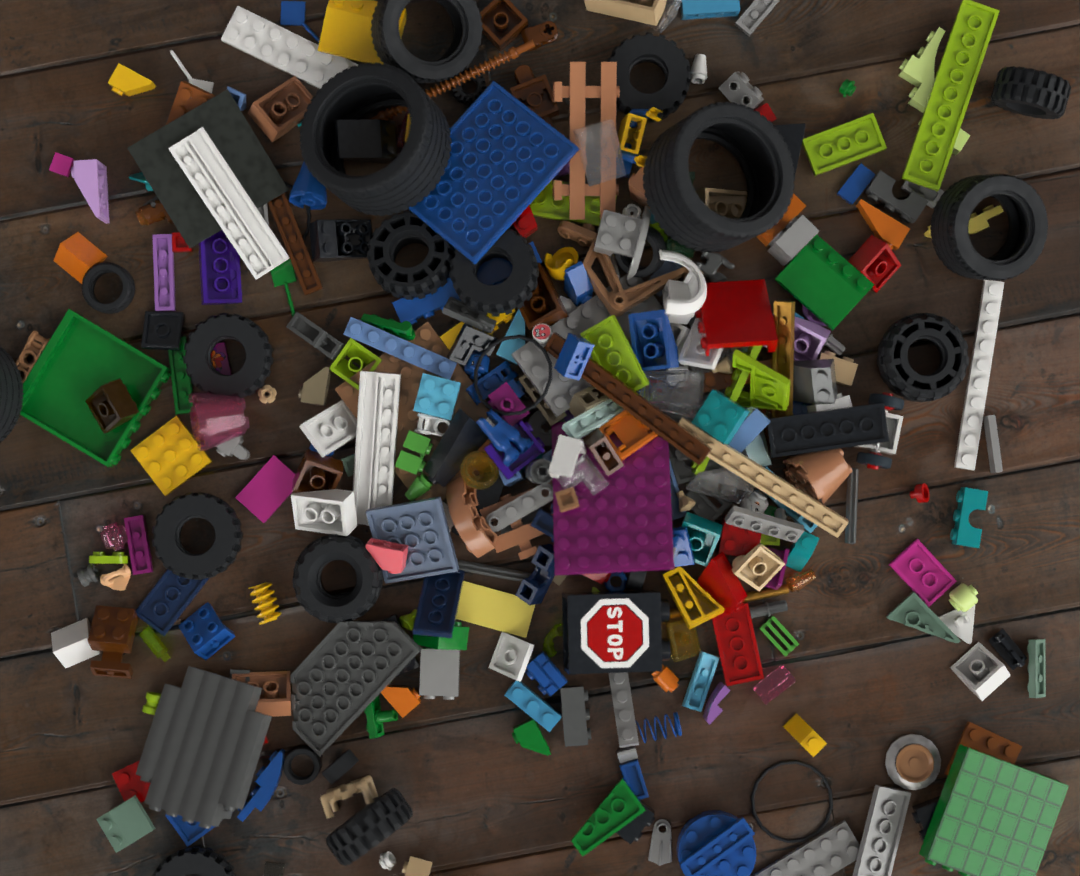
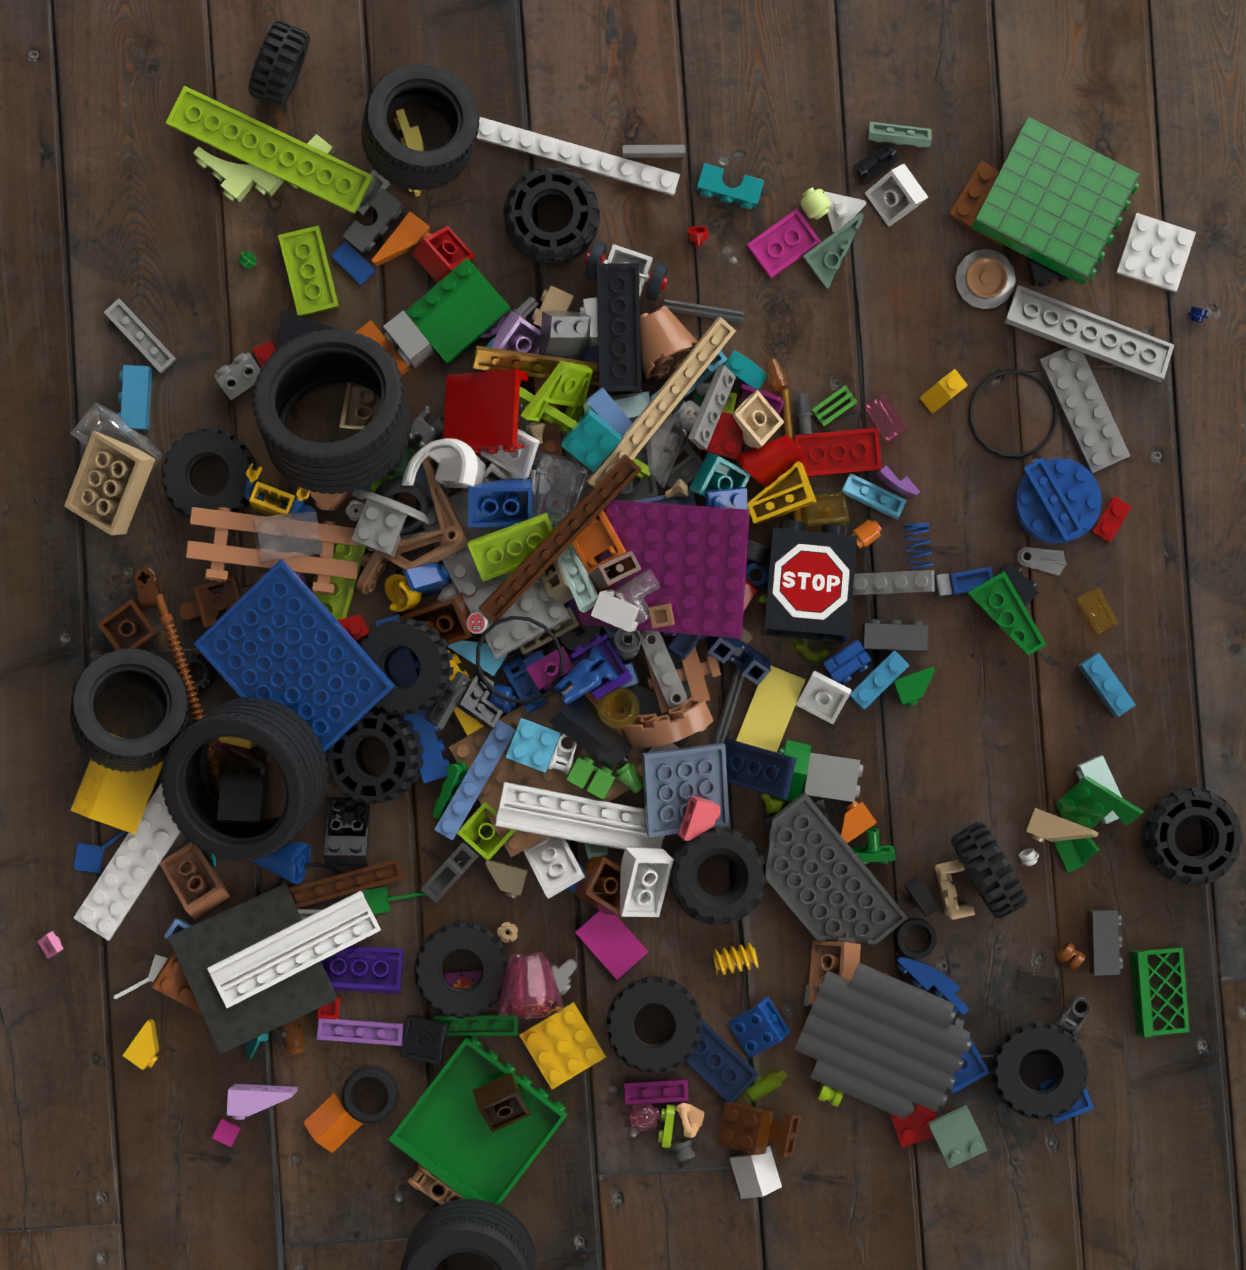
camera: 85 degrees left, 0 degrees up
(574, 357) = (508, 590): blue hinge -> none
(699, 69) = (207, 418): white cone -> none

